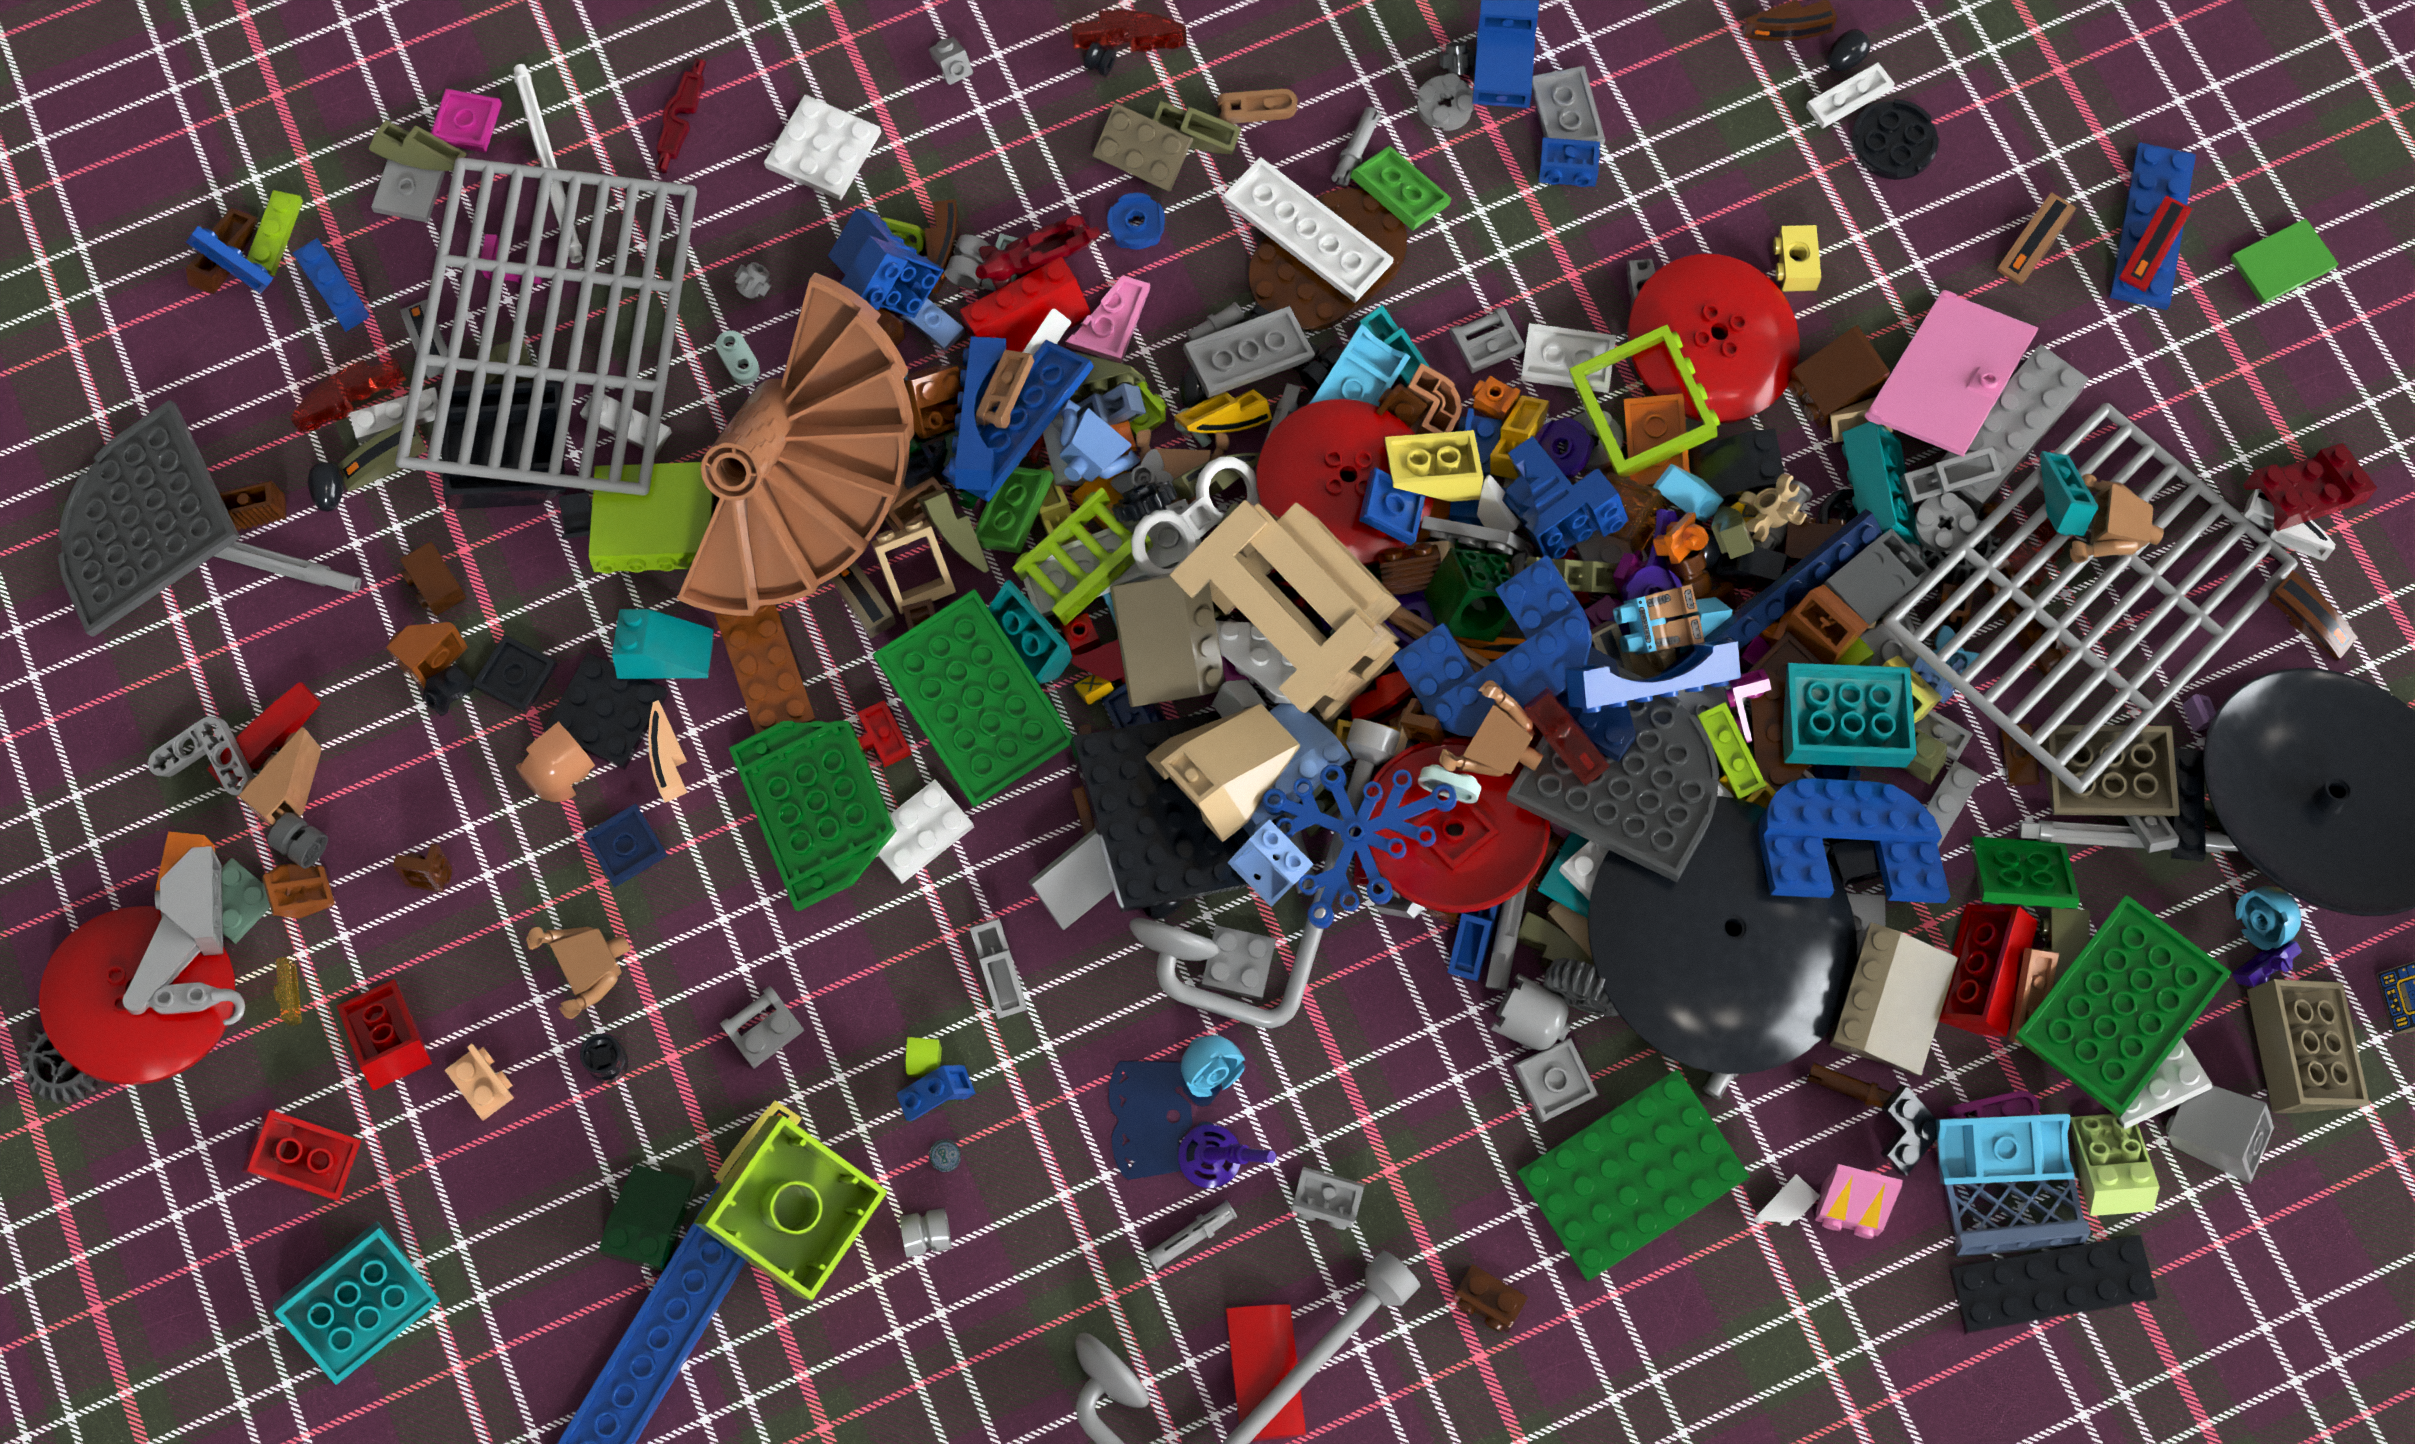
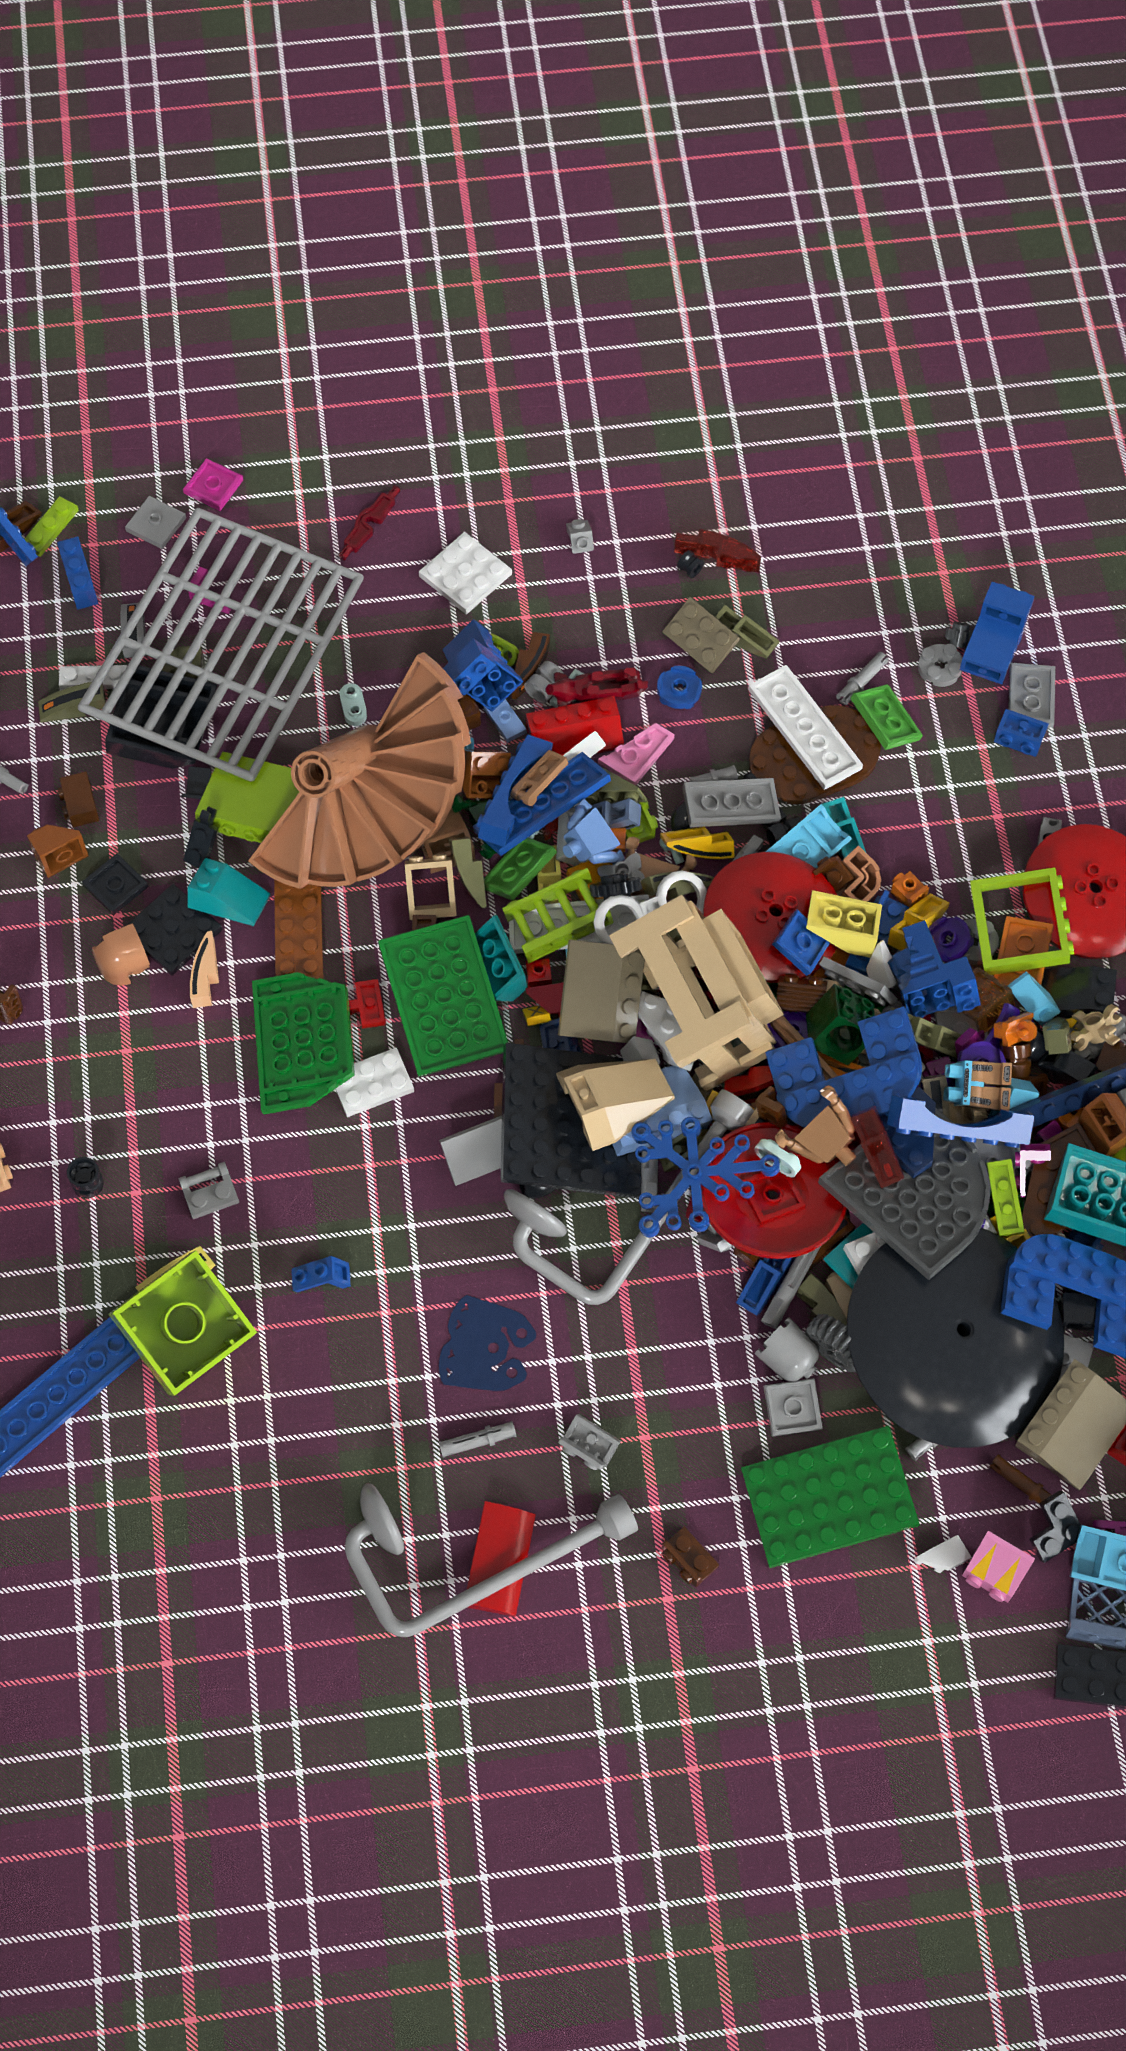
camera: 15 degrees right, 5 degrees down
(326, 485) = (25, 712): black animal -> none
(334, 396) = (55, 650): clear red slope -> none
(415, 148) = (170, 493): olive slope -> none
(446, 688) = (62, 879): black bracket -> none
(544, 151) = (262, 522): white piece -> none
(585, 960) = (95, 1102): medium nougat torso -> none
(606, 586) = (201, 838): none -> black plate
(625, 845) = (153, 1029): dark blue plate -> none
(637, 427) = (261, 732): white plate -> none
(647, 1218) = (77, 1304): dark green slope -> none
(752, 280) = (382, 652): light grey gear -> none
(863, 600) = (386, 902): dark tan slope -> none
(922, 1056) = (319, 1245): lime brick -> none
(925, 465) = (463, 817): black slope -> none
(925, 1232) = (278, 1376): light grey wheel -> none
(945, 1155) = (312, 1324): clear smoke tile -> none
(998, 967) = (397, 1198): light grey slope -> none
(1211, 1063) = (533, 1316): medium azure cylinder -> none
(1216, 1156) = (514, 1386): dark purple dish -> none
(1241, 963) = (580, 1249): light grey plate -> none
(1257, 105) = (797, 629): medium nougat plate -> none
(1257, 858) = (627, 1187): light blue window -> none
(1490, 347) = (917, 851): light grey plate -> none
(1555, 349) = (963, 865): white plate -> none

